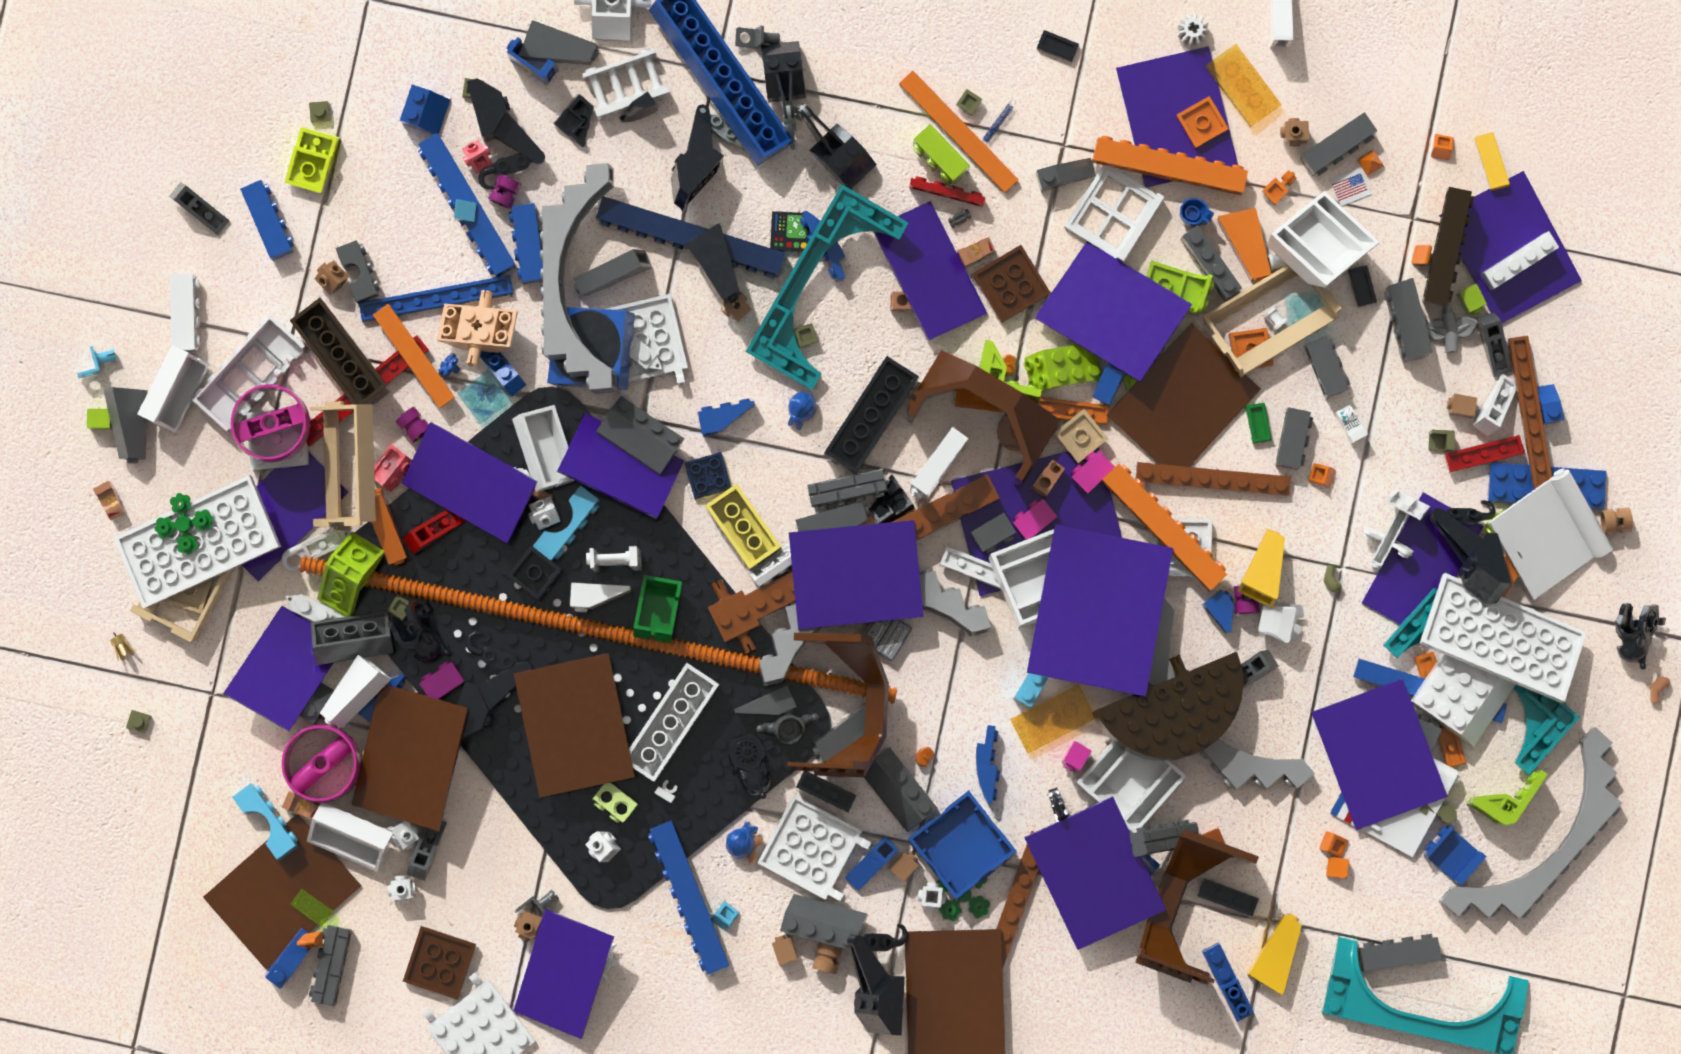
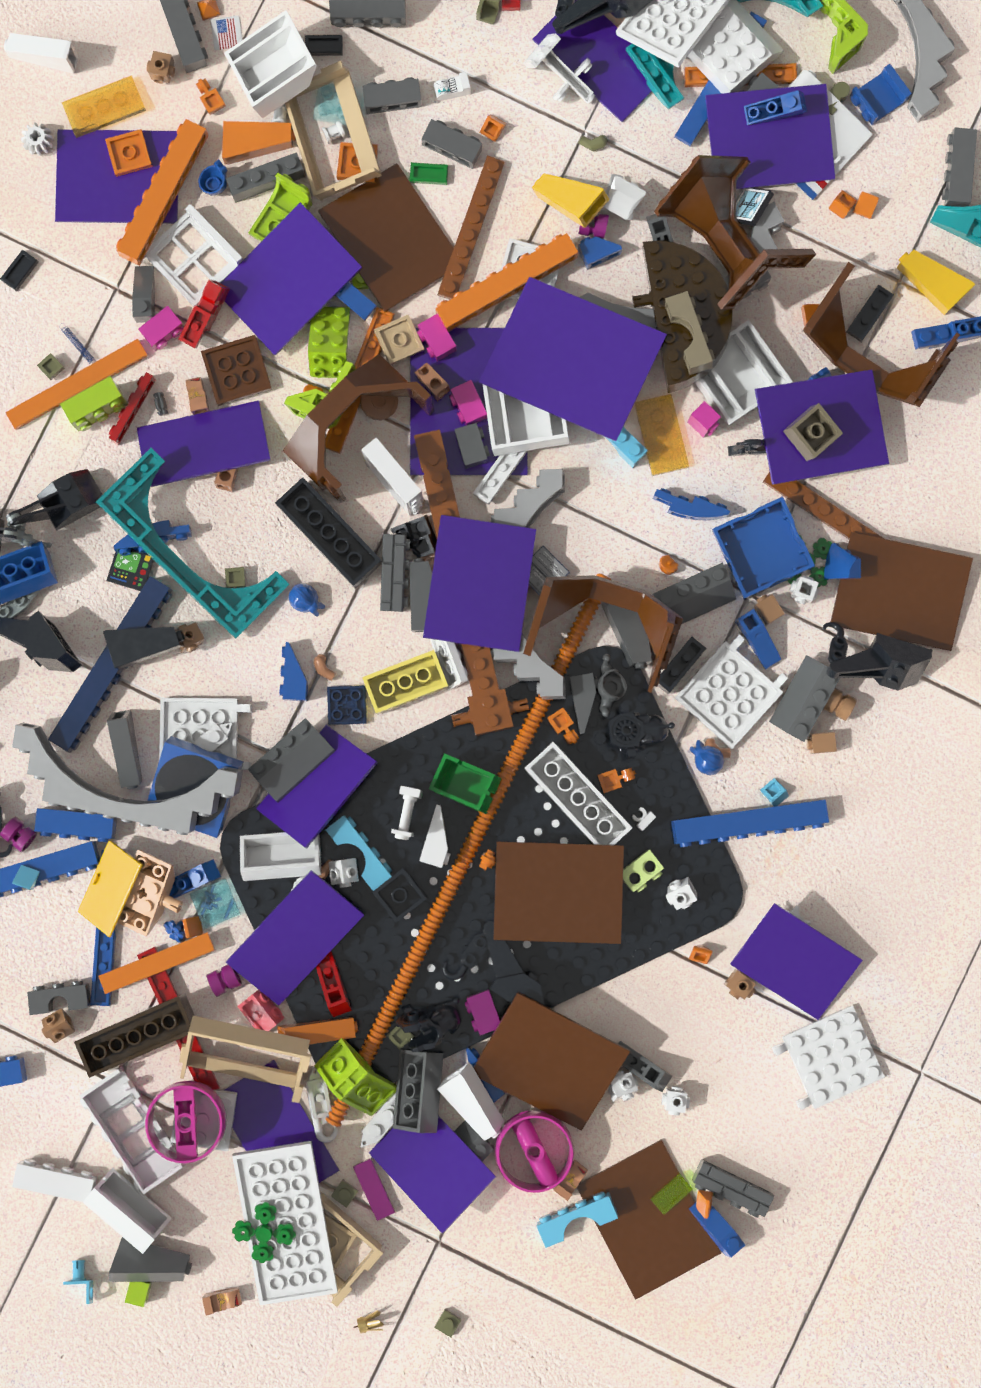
camera: 80 degrees left, 0 degrees up
(237, 592) = (344, 1193): none -> olive plate
(248, 619) = (374, 1189): none -> magenta tile
(349, 836) = (612, 1140): white piece -> none
(439, 962) = (754, 1080): reddish brown plate -> none
(456, 381) = (192, 927): none -> orange slope
(474, 293) = (110, 888): none -> yellow container
(541, 904) = (722, 967): dark grey bracket -> none
(549, 880) = (700, 954): none -> orange slope
(589, 649) = (488, 860): none -> orange plate
(696, 751) = (611, 781): none -> orange plate
(737, 441) = (321, 669): none -> nougat arm
(742, 688) = (561, 722): none -> orange plate
(965, 927) = (841, 564): none -> blue slope
(1033, 200) = (161, 328): none -> dark pink brick
(1058, 238) = (204, 313): none -> red plate
(1083, 863) = (812, 432): none -> dark tan brick
(1130, 730) = (681, 311): none -> dark tan arch
(1159, 838) = (803, 356): dark grey brick -> none
(1292, 708) = (707, 204): none -> reddish brown panel
(1304, 750) = (752, 204): none -> tile
(1406, 751) = (776, 108): none -> blue slope

